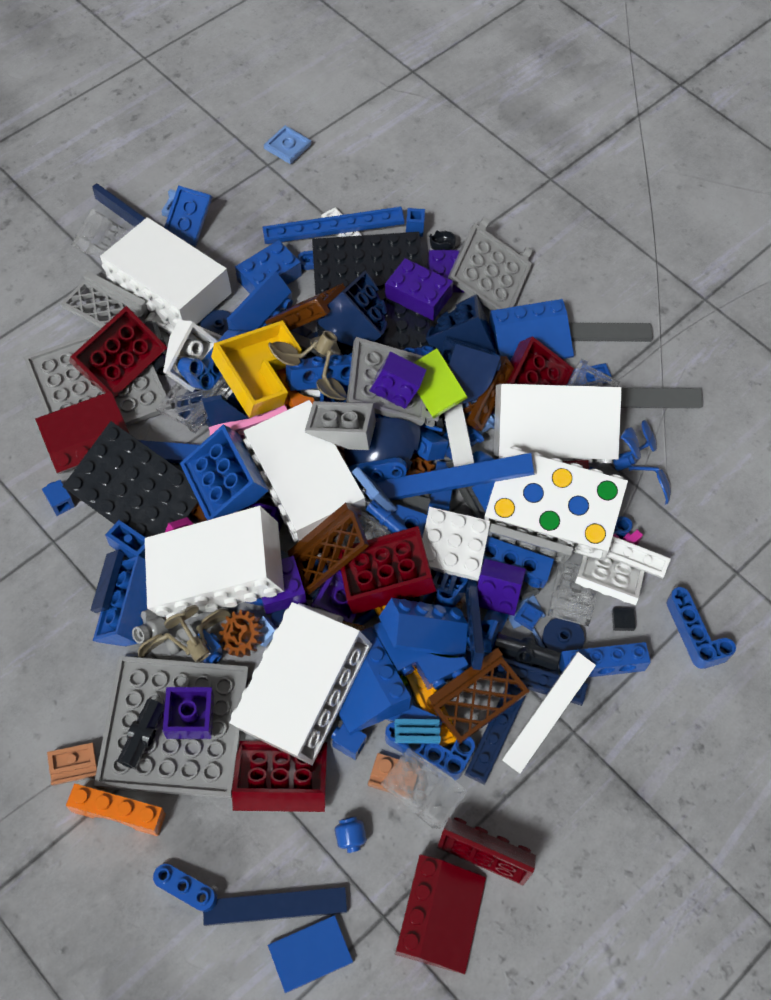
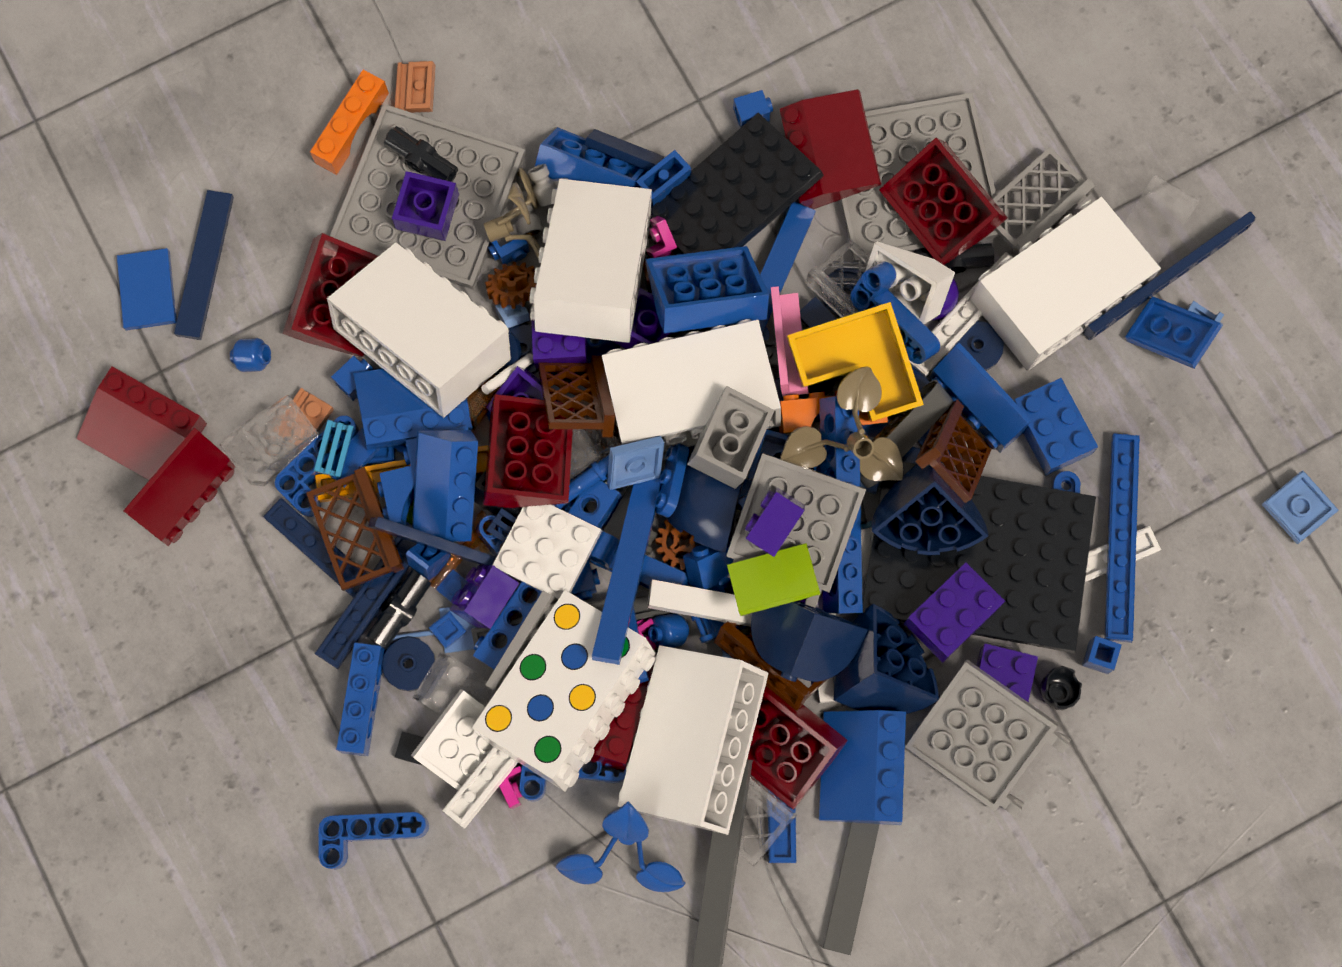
camera: 110 degrees right, 15 degrees up
(193, 890) = (245, 186): blue plate -> none
(221, 410) = (815, 308): dark blue slope -> none
(548, 712) = (315, 609): white tile -> none

